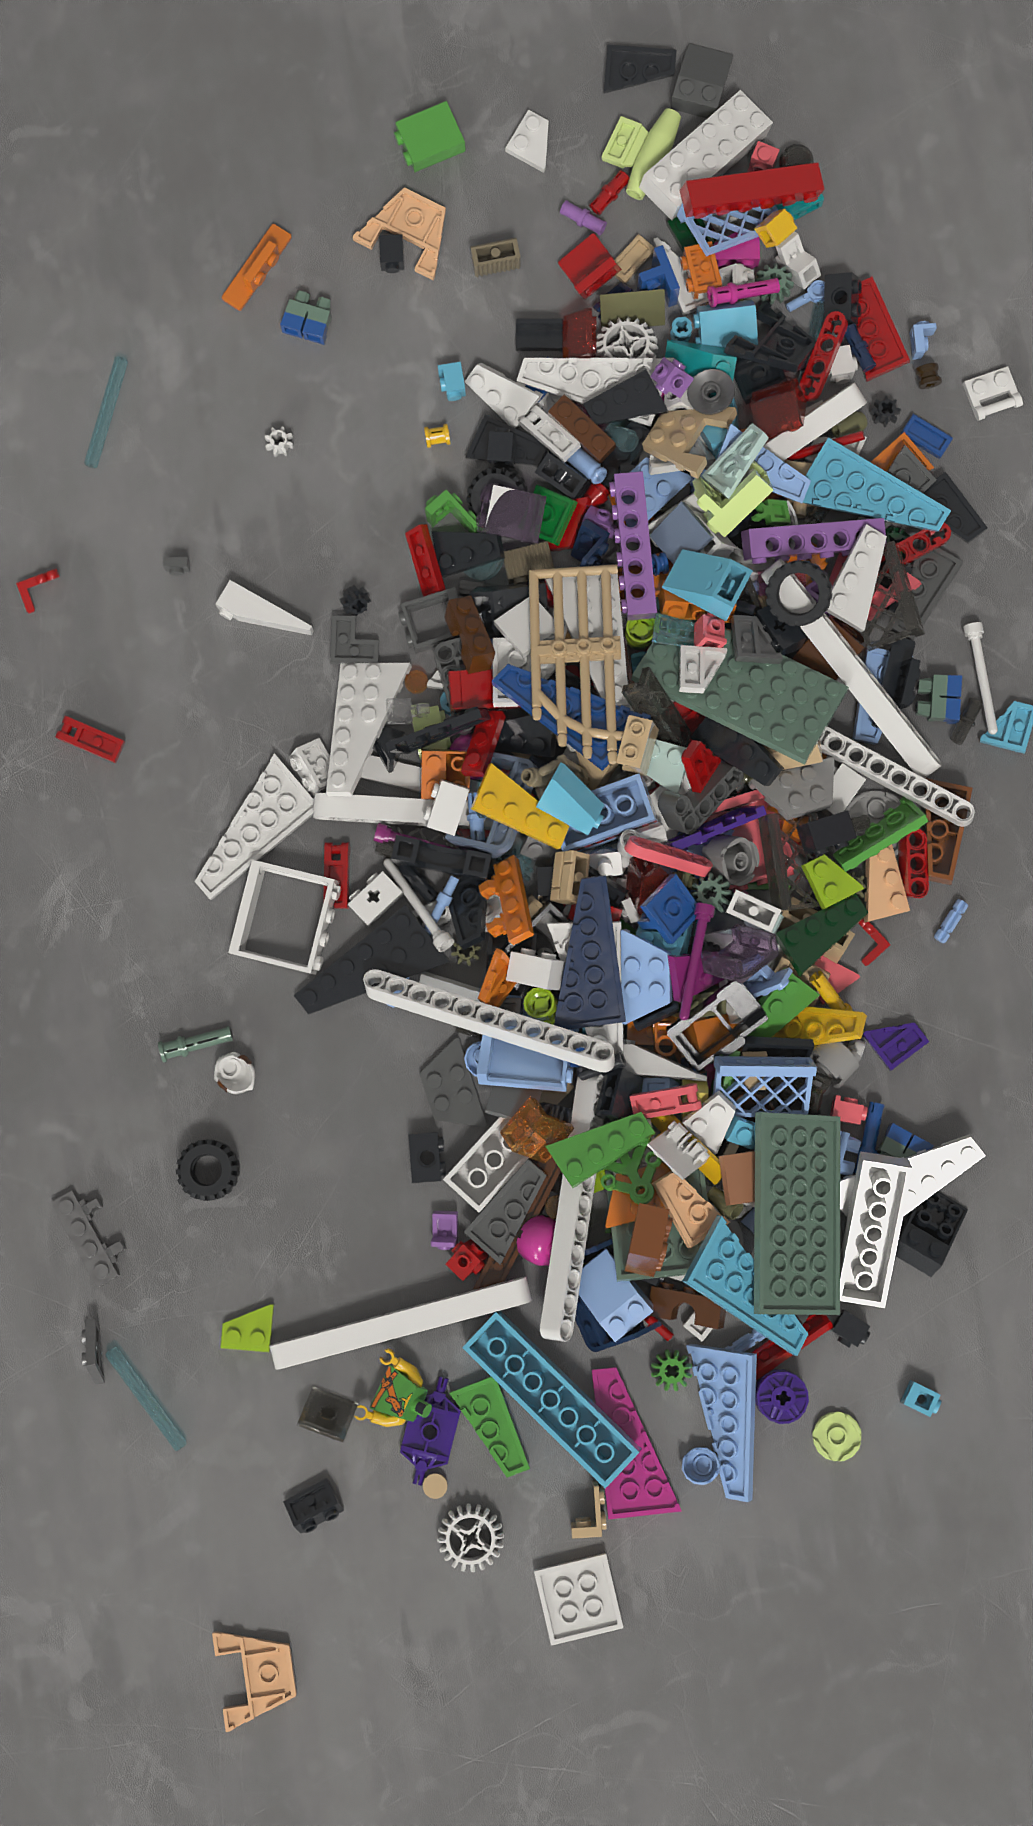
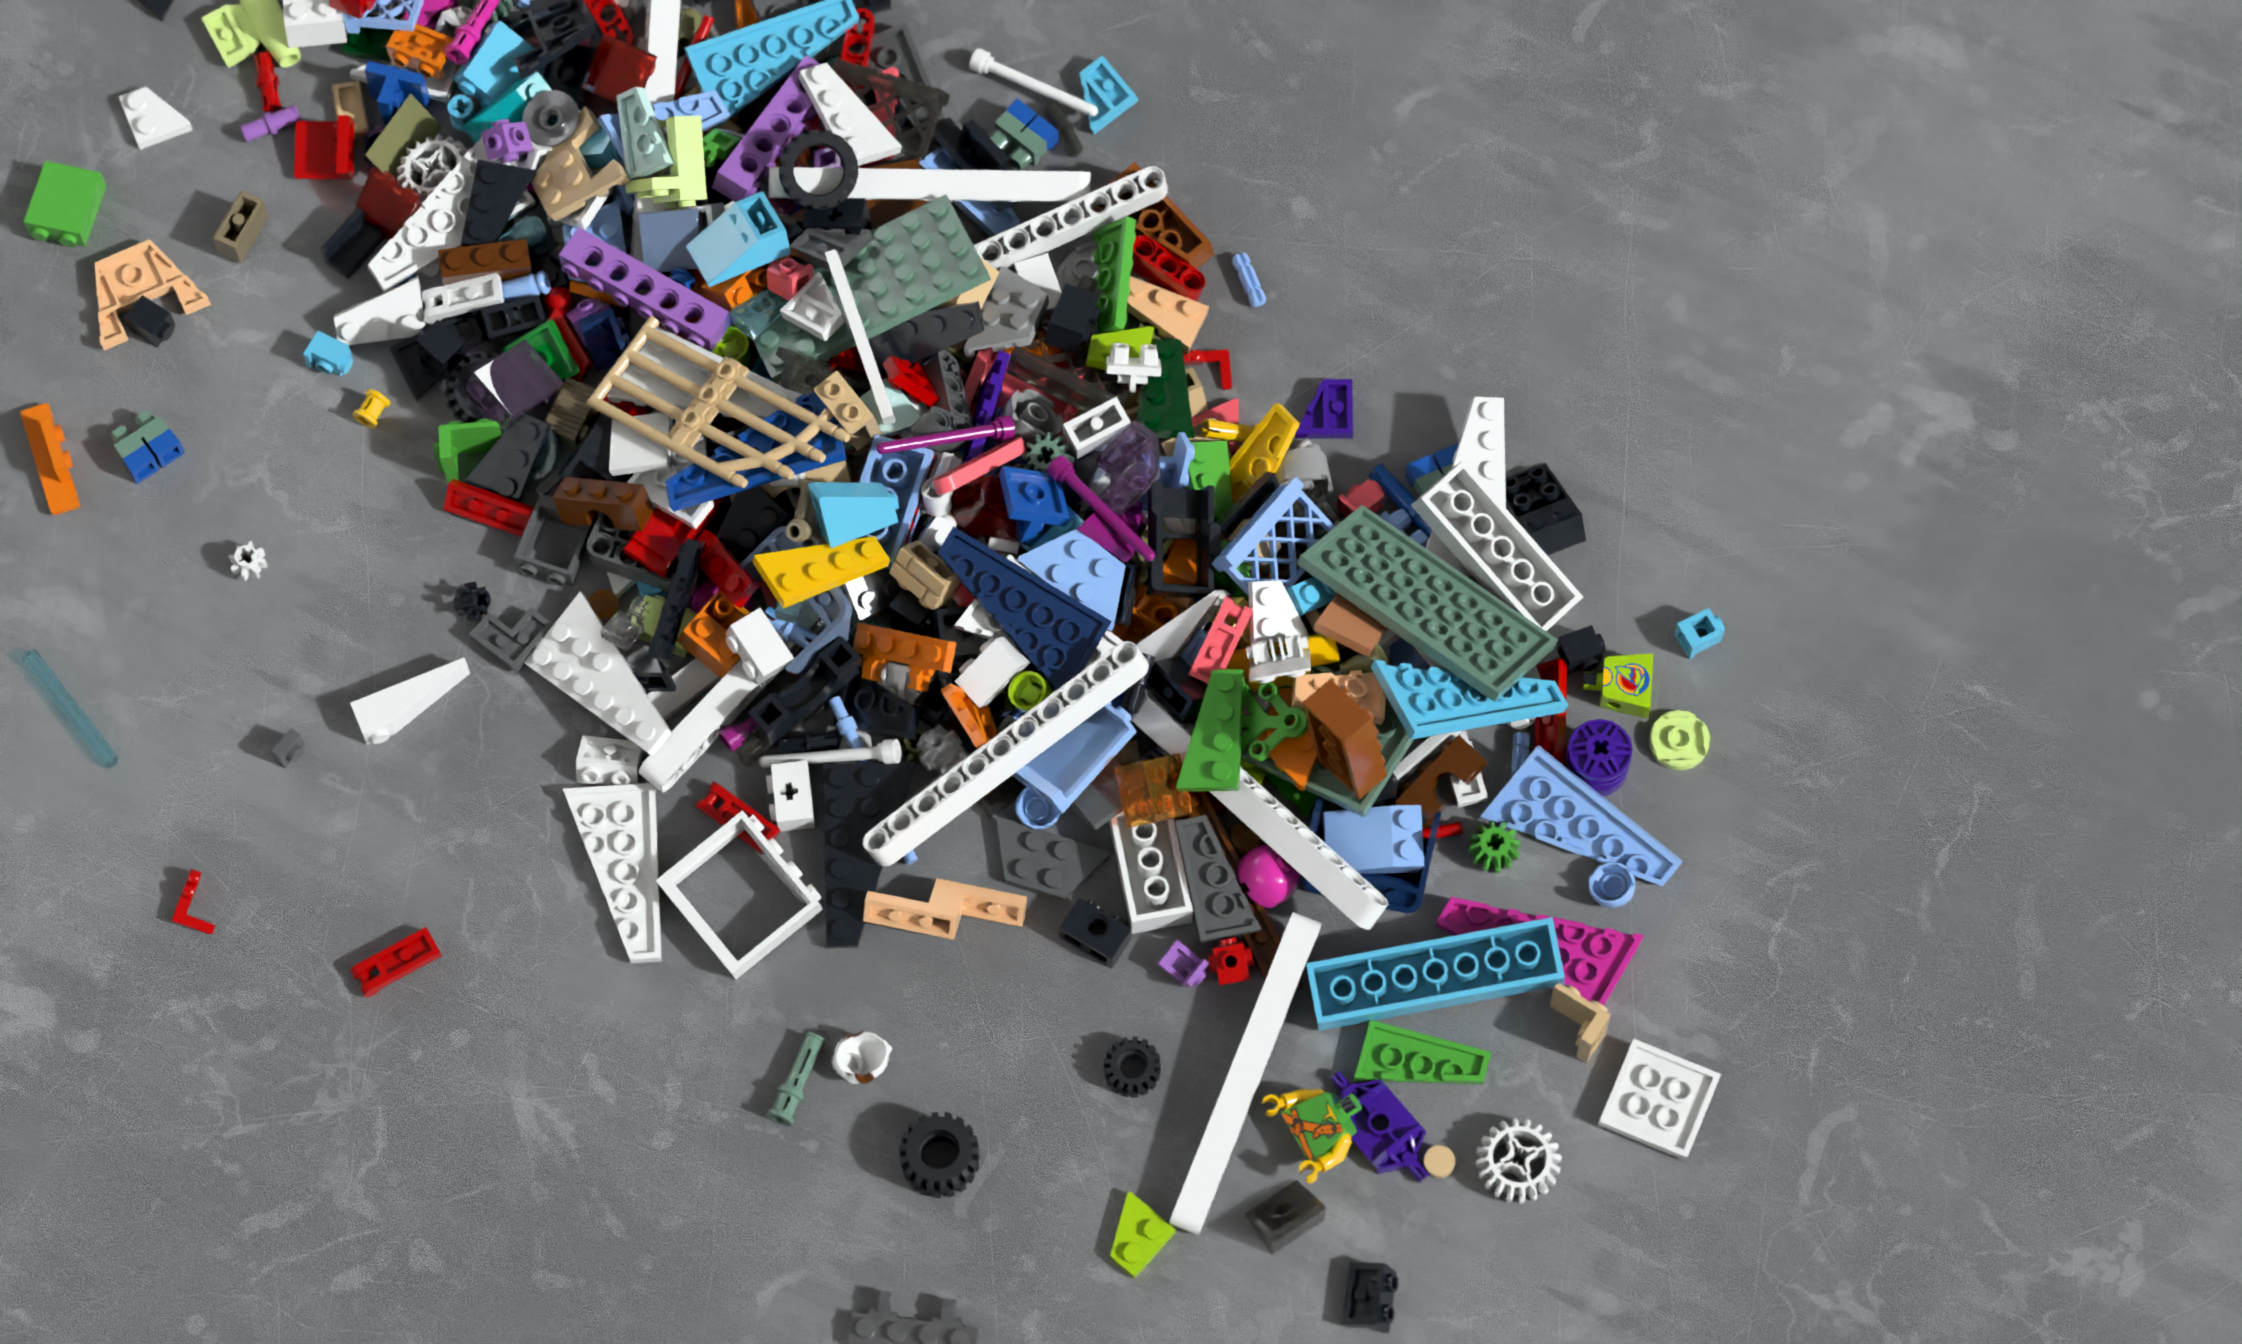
camera: 55 degrees left, 15 degrees down
(344, 1257) = (1138, 1049): none -> black tyre
(369, 1052) = (945, 908): none -> light nougat bracket
(470, 980) = (940, 750): none -> clear brick
(697, 712) = (860, 337): none -> white tile
(708, 848) = (1001, 429): none -> magenta piece
(818, 900) = (1133, 370): none -> white hips
(847, 1374) = (1624, 684): none -> lime torso

